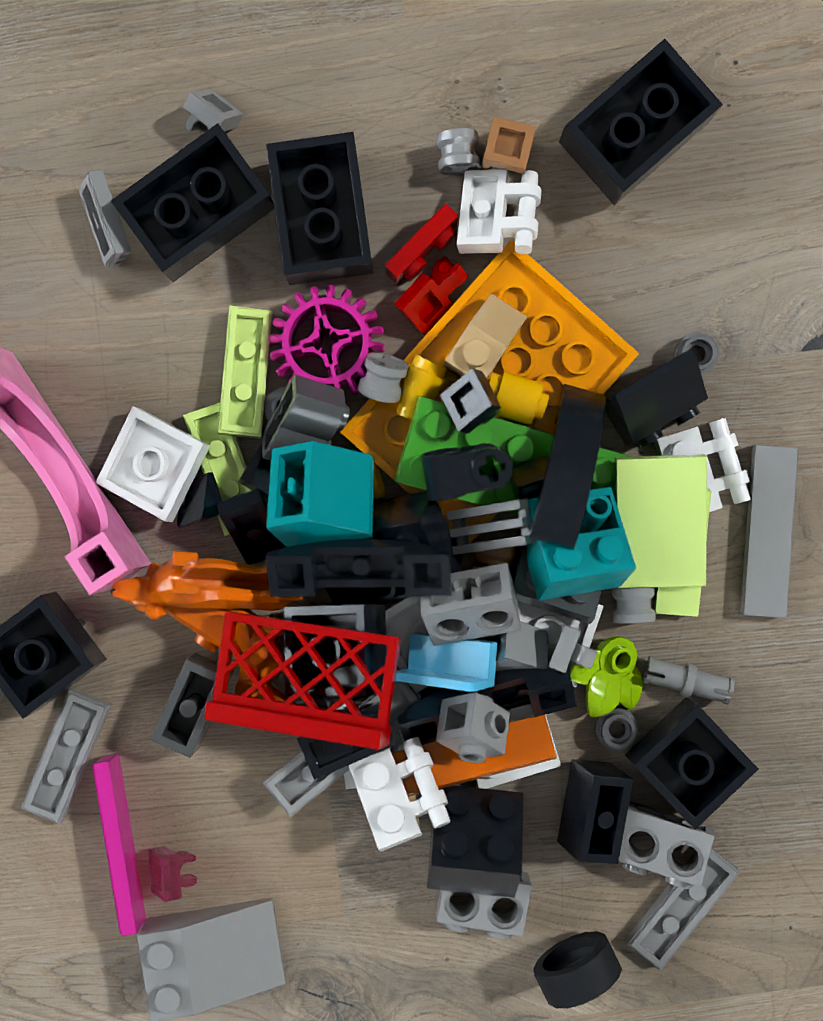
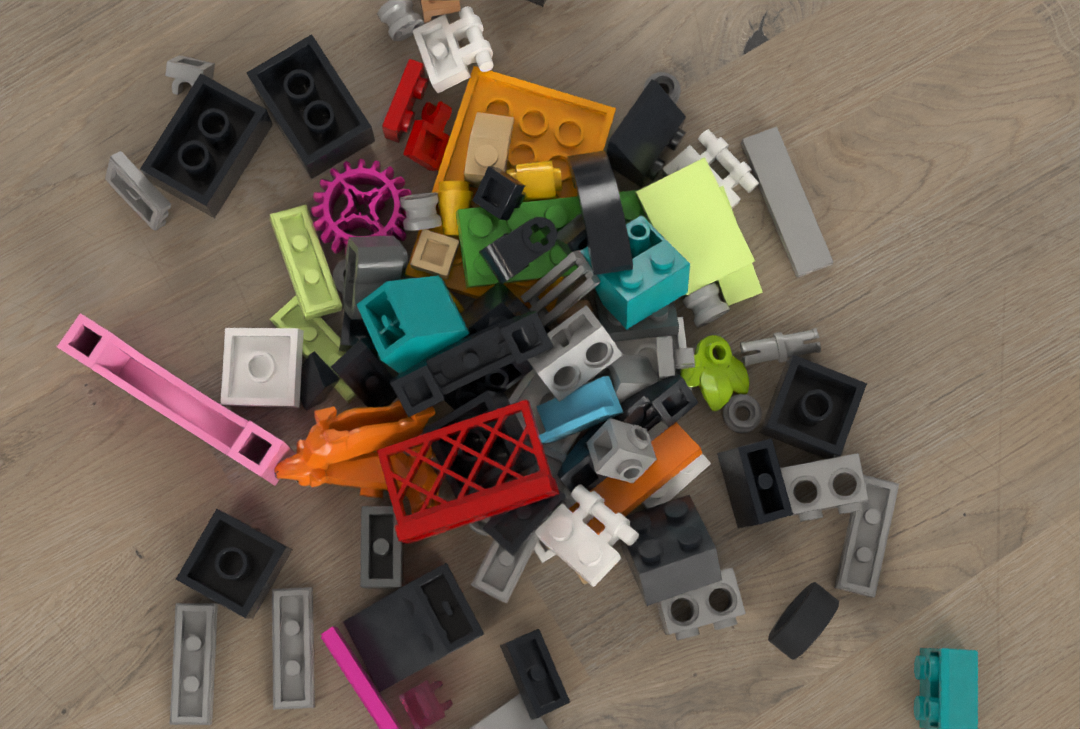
camera: 30 degrees left, 10 degrees down
(193, 798) = (413, 627): none -> black slope
(289, 893) = (535, 674): none -> black plate
(378, 428) = (435, 254): none -> tan plate

